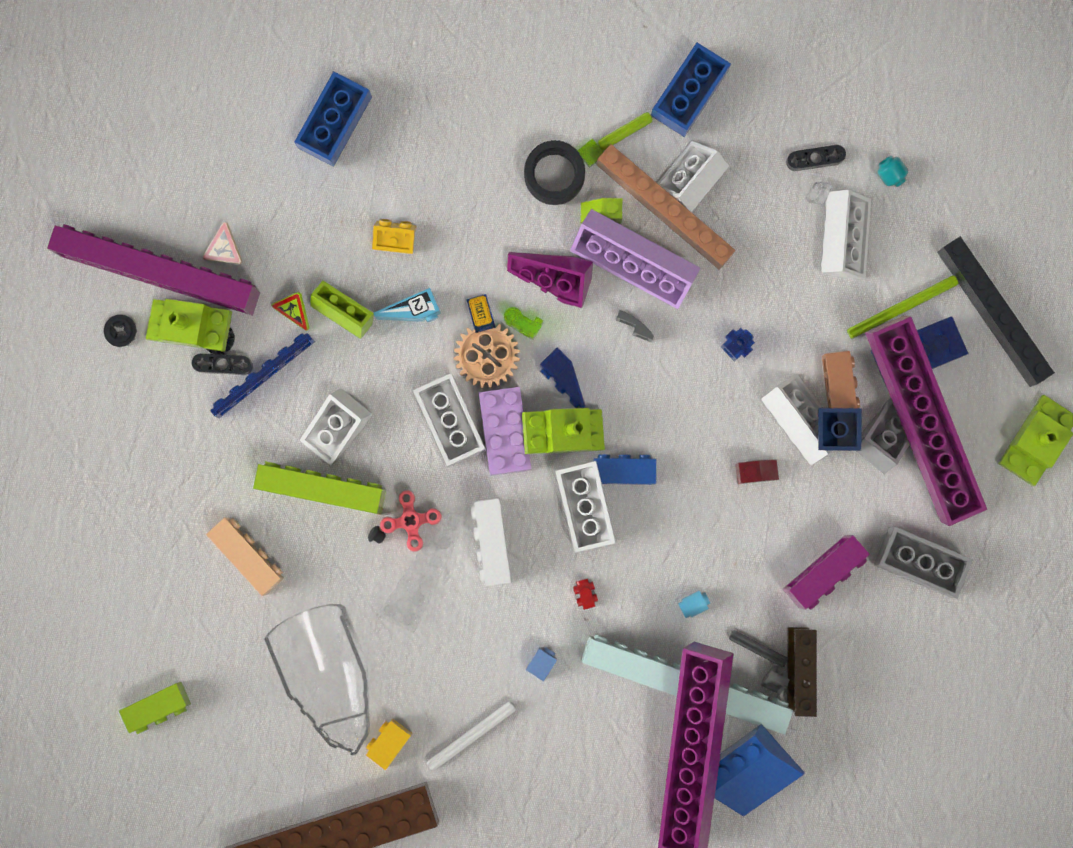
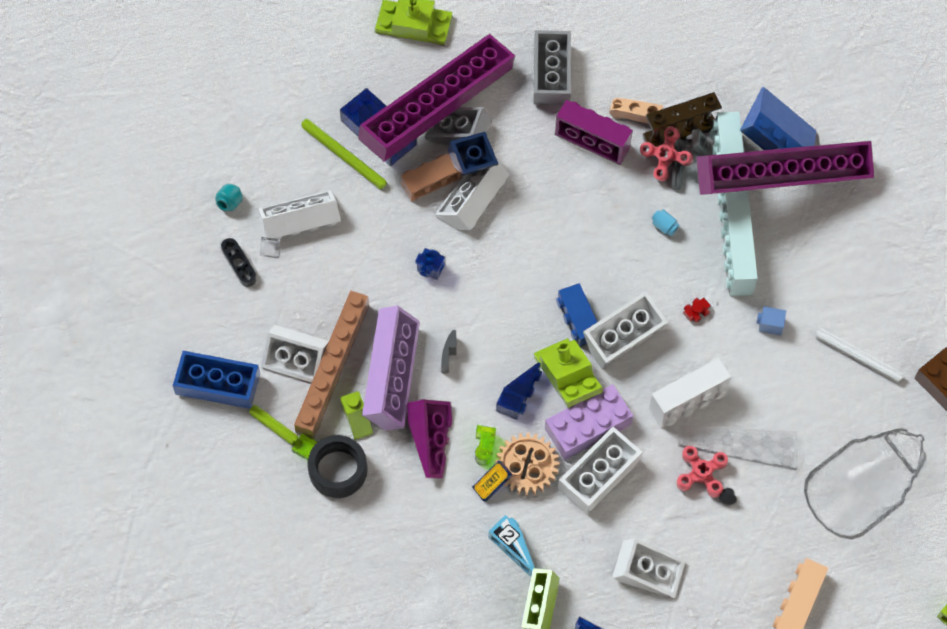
camera: 115 degrees left, 20 degrees down
(320, 489) = (711, 555): lime brick -> none
(388, 744) = (898, 414): yellow brick -> none
(394, 236) = (451, 586): yellow bracket -> none
(757, 471) = (533, 215): dark red slope -> none
(764, 633) = (660, 152): none -> coral gear
(837, 631) = (632, 109): none -> light nougat leg
(995, 312) = (320, 83): black brick -> none

